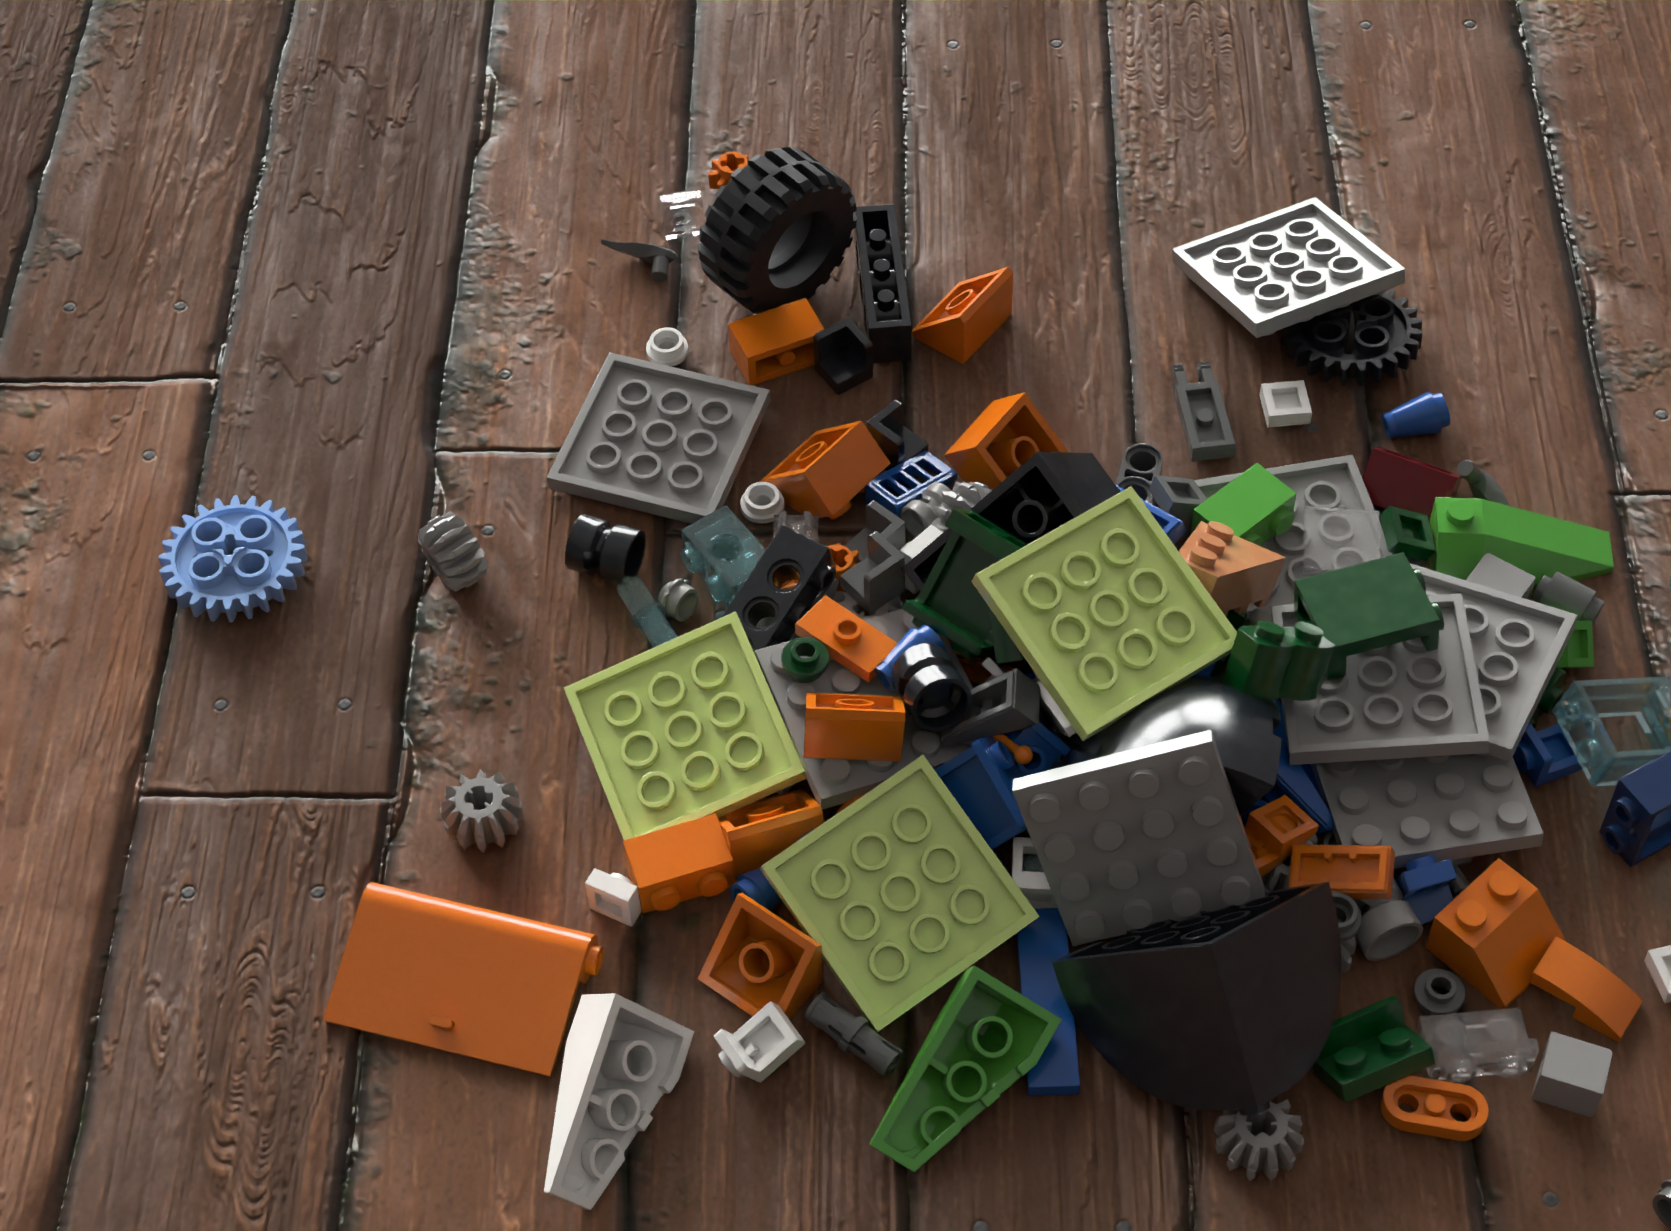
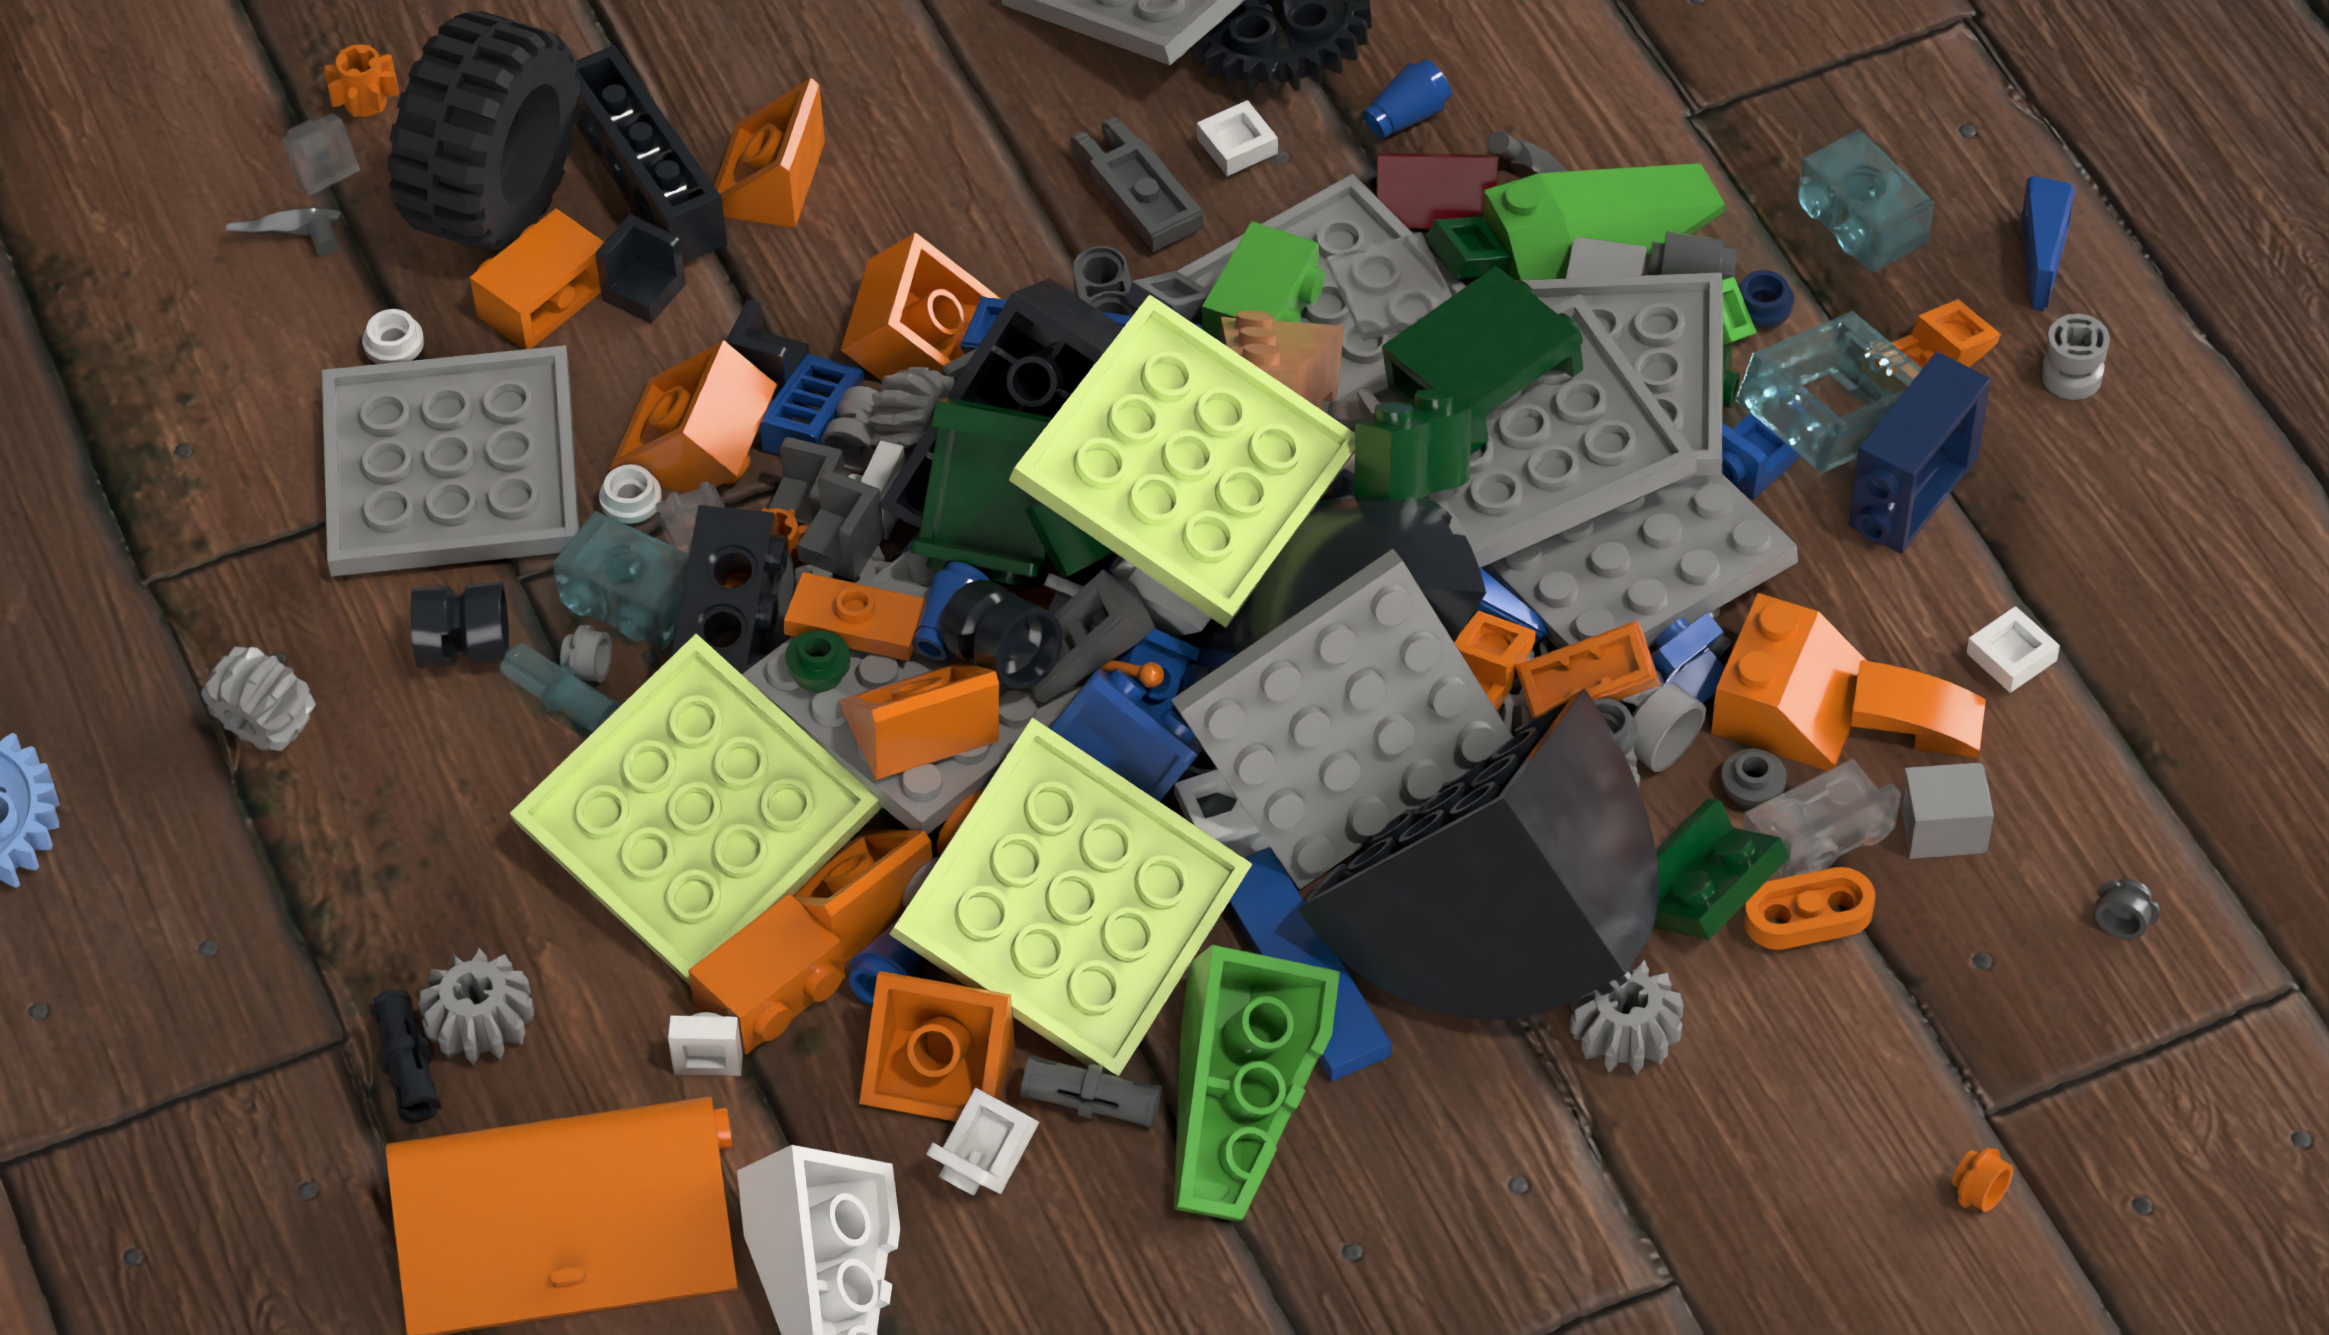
camera: 25 degrees left, 0 degrees up
(421, 826) = (405, 1056): none -> black pin
(1617, 638) = (1767, 298): none -> dark blue plate

